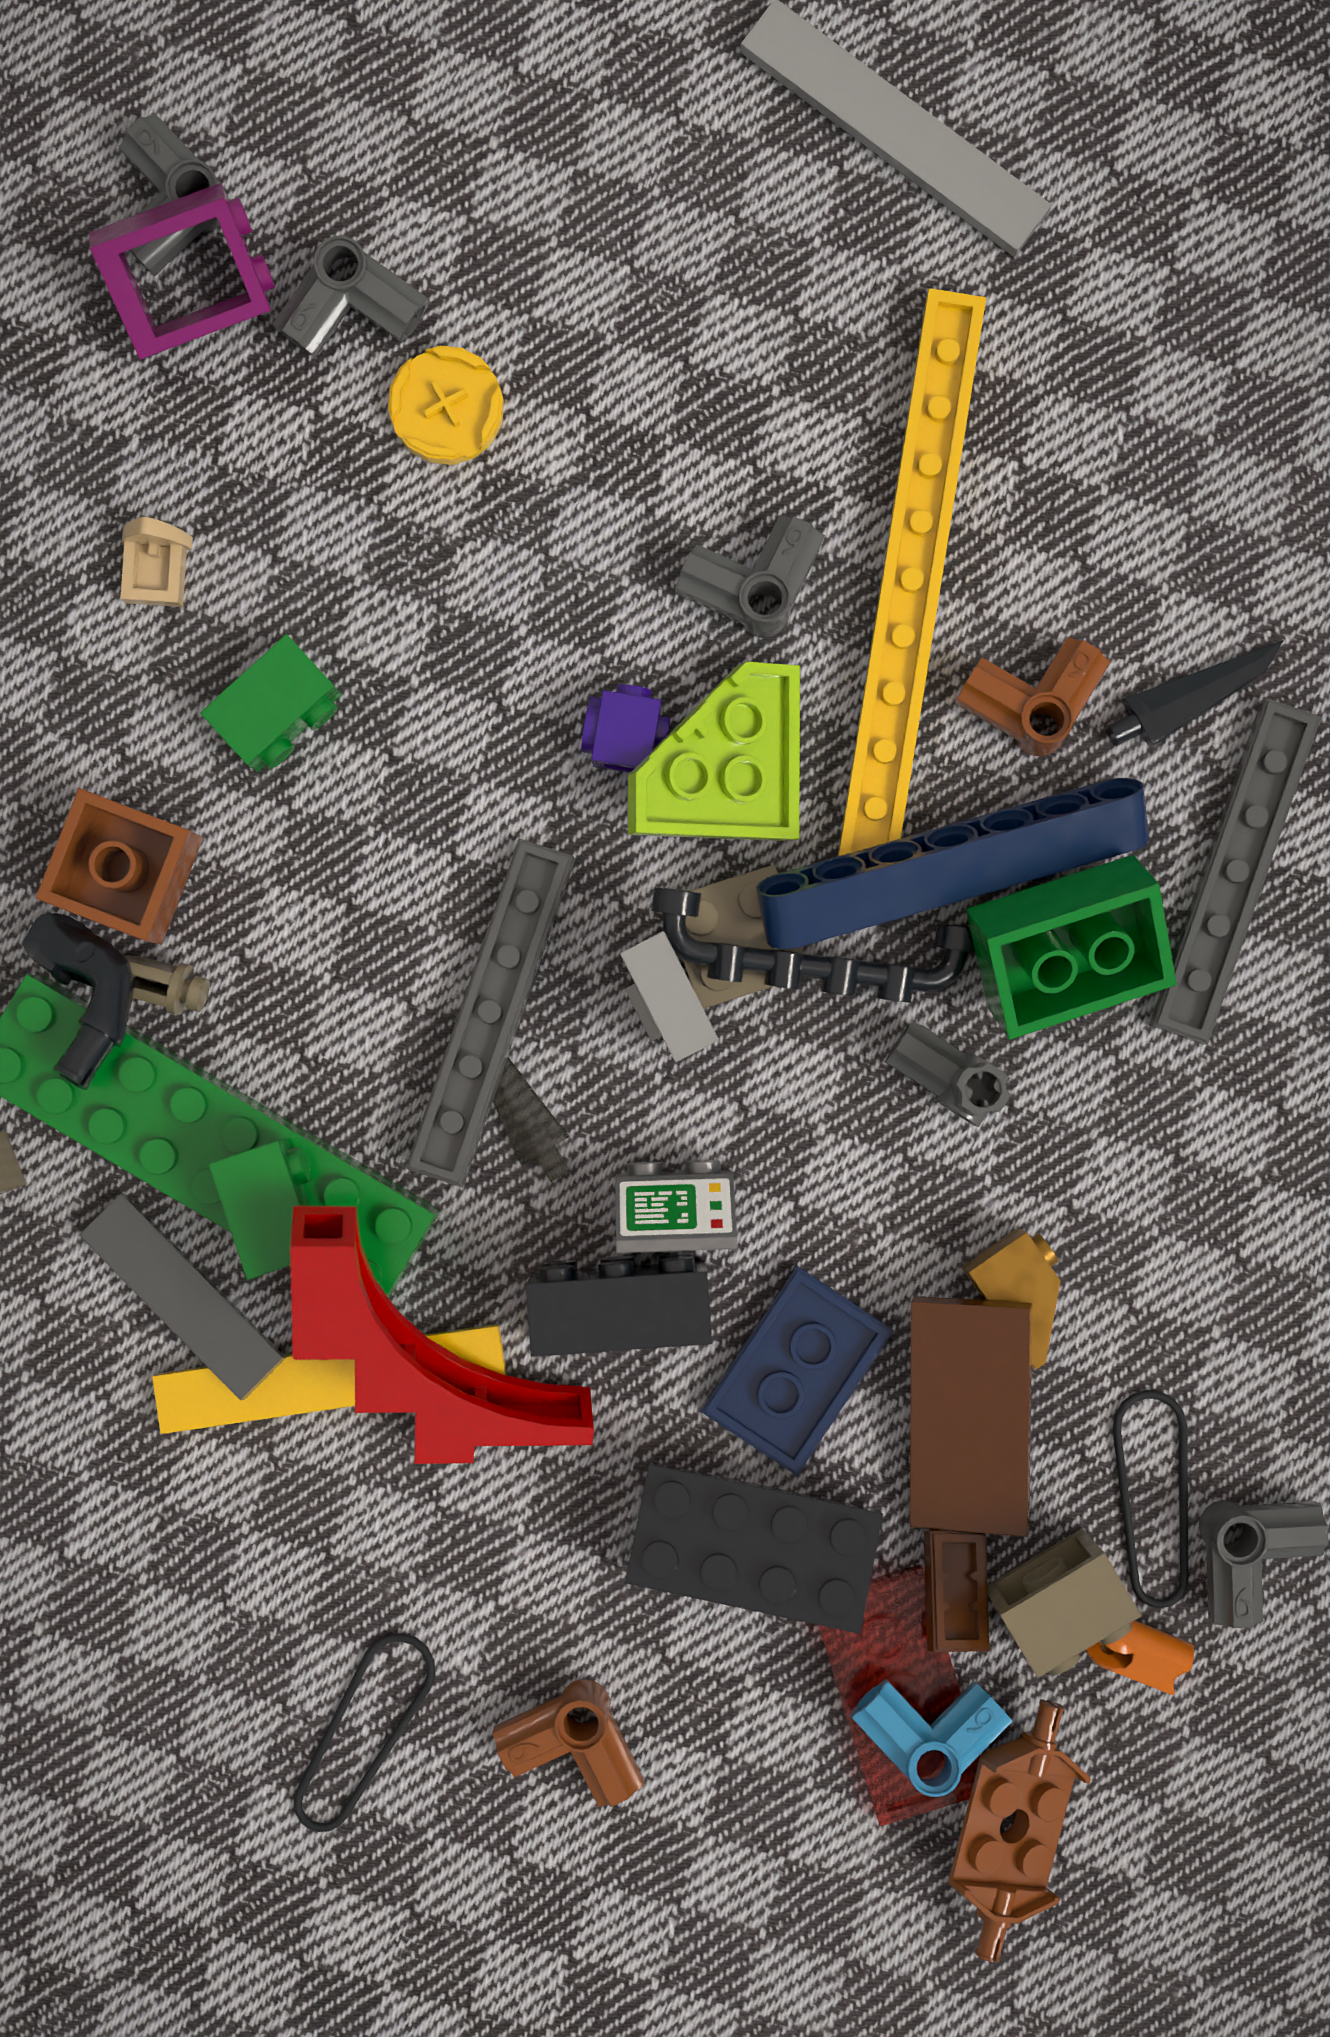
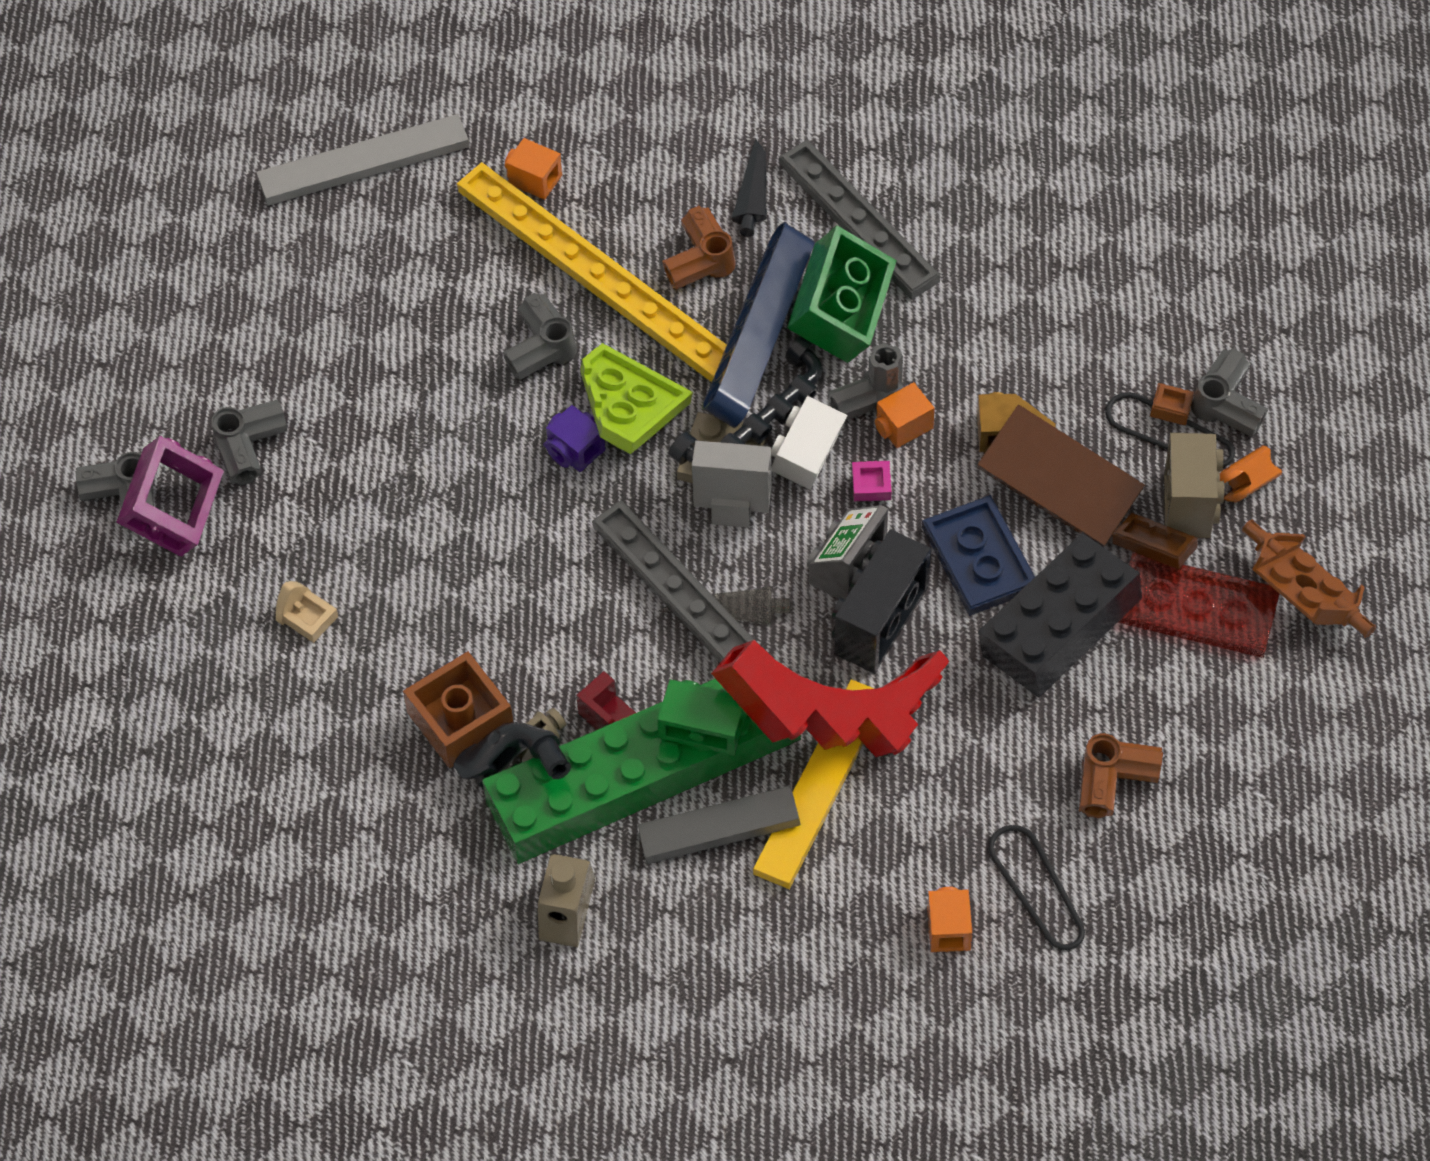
camera: 55 degrees left, 30 degrees down
(233, 1664) = (949, 920): none -> orange brick
(256, 1045) = (599, 702): none -> dark red panel
(272, 705) = (428, 592): green brick -> none
(446, 405) = (336, 430): yellow tile -> none
(812, 1046) = (808, 441): none -> white brick
(814, 1163) = (871, 481): none -> dark pink plate
(904, 1735) = (1233, 593): dark azure piece -> none
(941, 1143) = (904, 415): none -> orange brick
(1024, 374) = (533, 168): none -> orange brick
(1194, 1482) = (1171, 404): none -> dark orange tile

